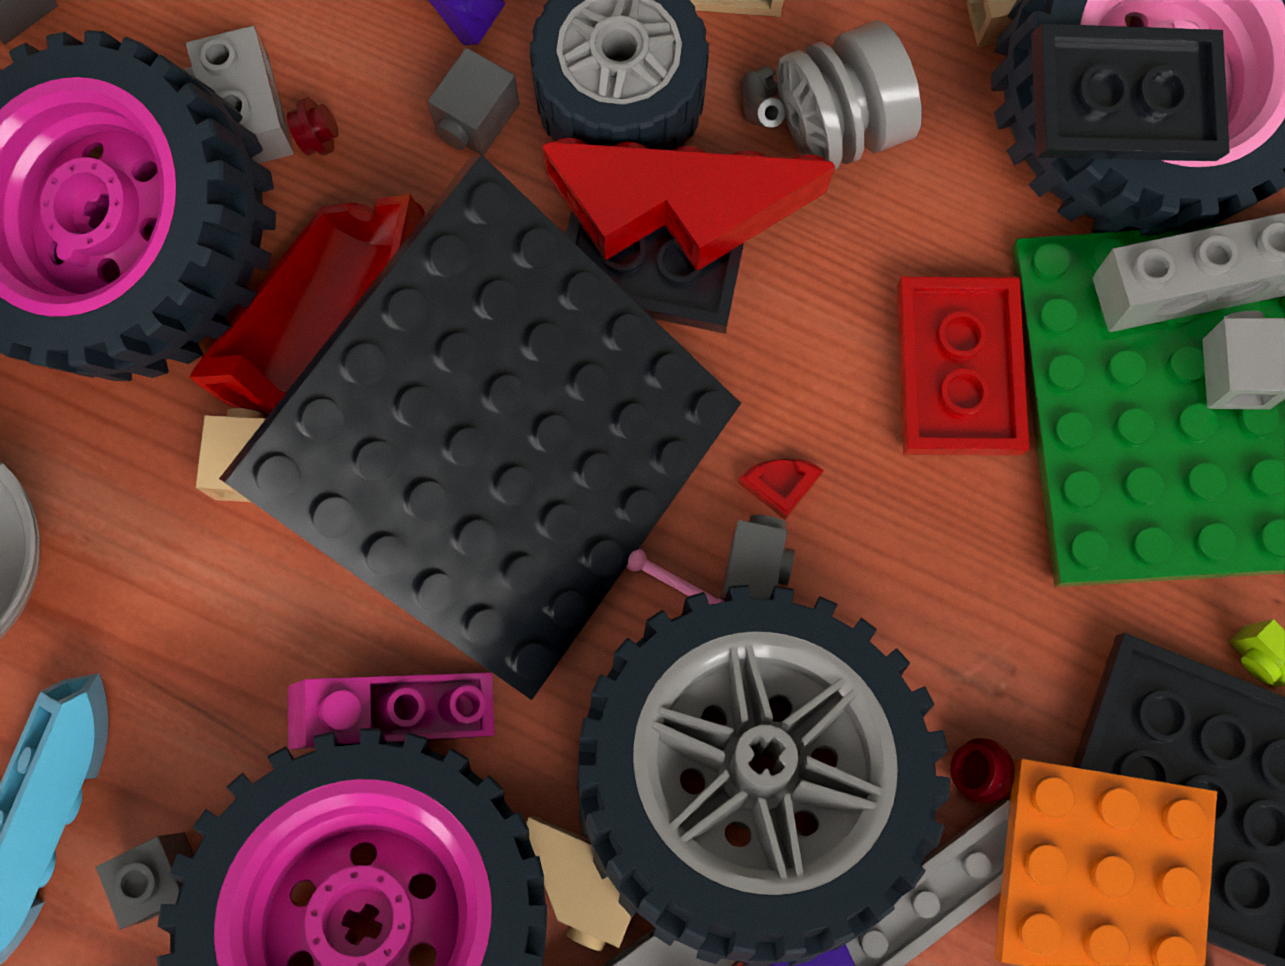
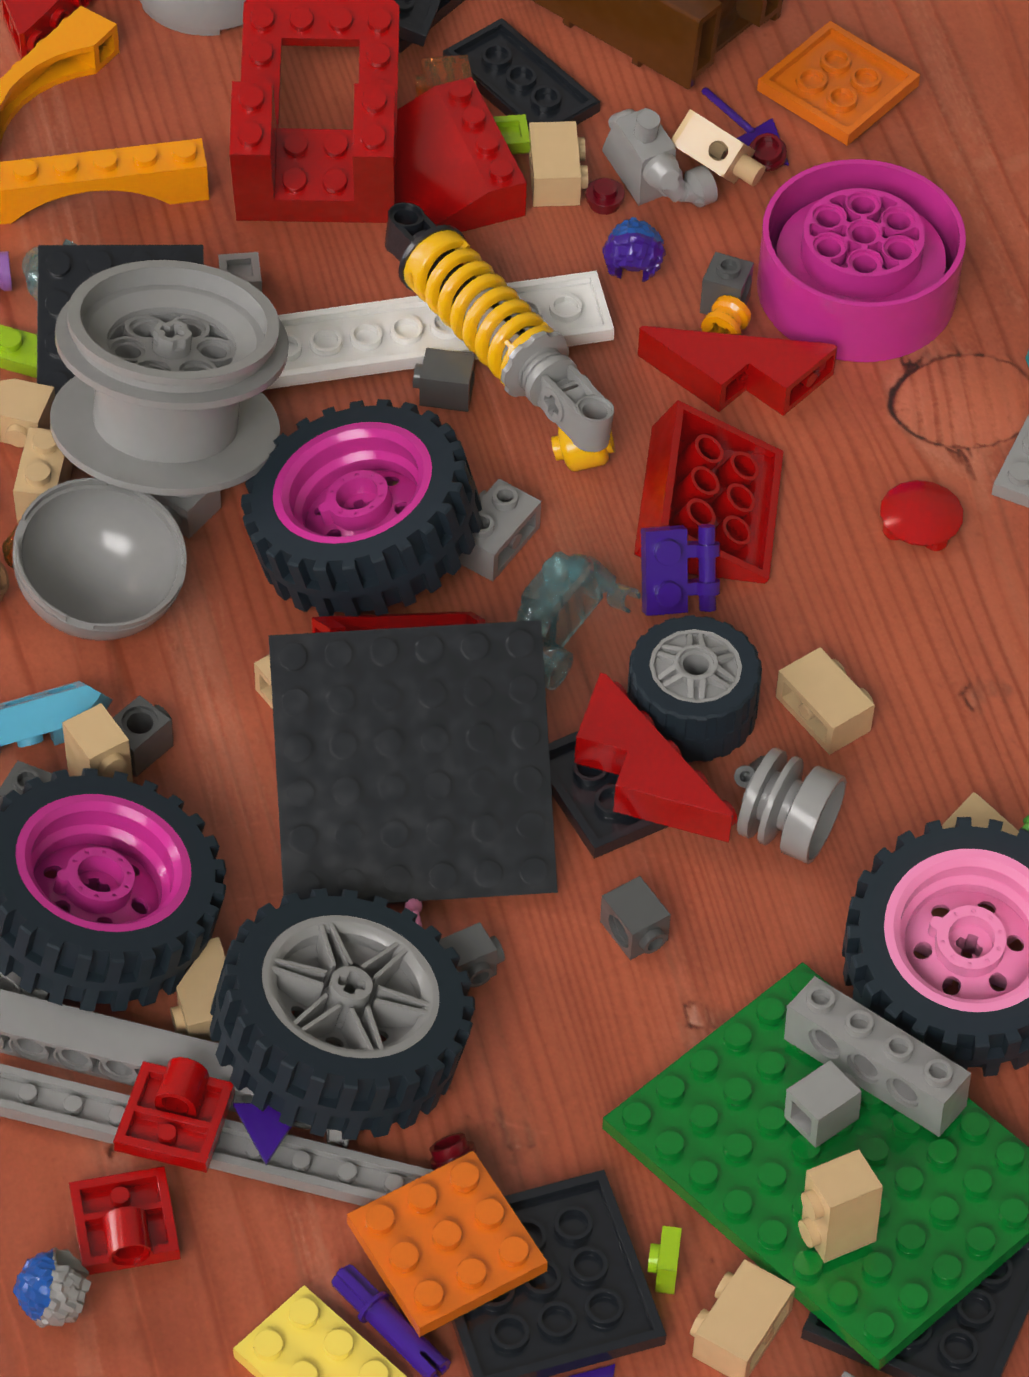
camera: 50 degrees right, 25 degrees down
(168, 764) = (96, 742): none -> tan brick
(190, 701) = (155, 728): none -> dark grey brick
(312, 127) = (513, 574): dark red plate -> none
(398, 113) = (563, 599): none -> clear light blue torso
(417, 704) = (247, 873): dark pink slope -> none
(473, 102) = (604, 637): dark grey brick -> none
(781, 483) = (530, 949): red tile -> none
(843, 354) = (635, 918): none -> dark grey brick
(962, 366) = (691, 986): red plate -> none
(1129, 93) = (903, 905): black plate -> none

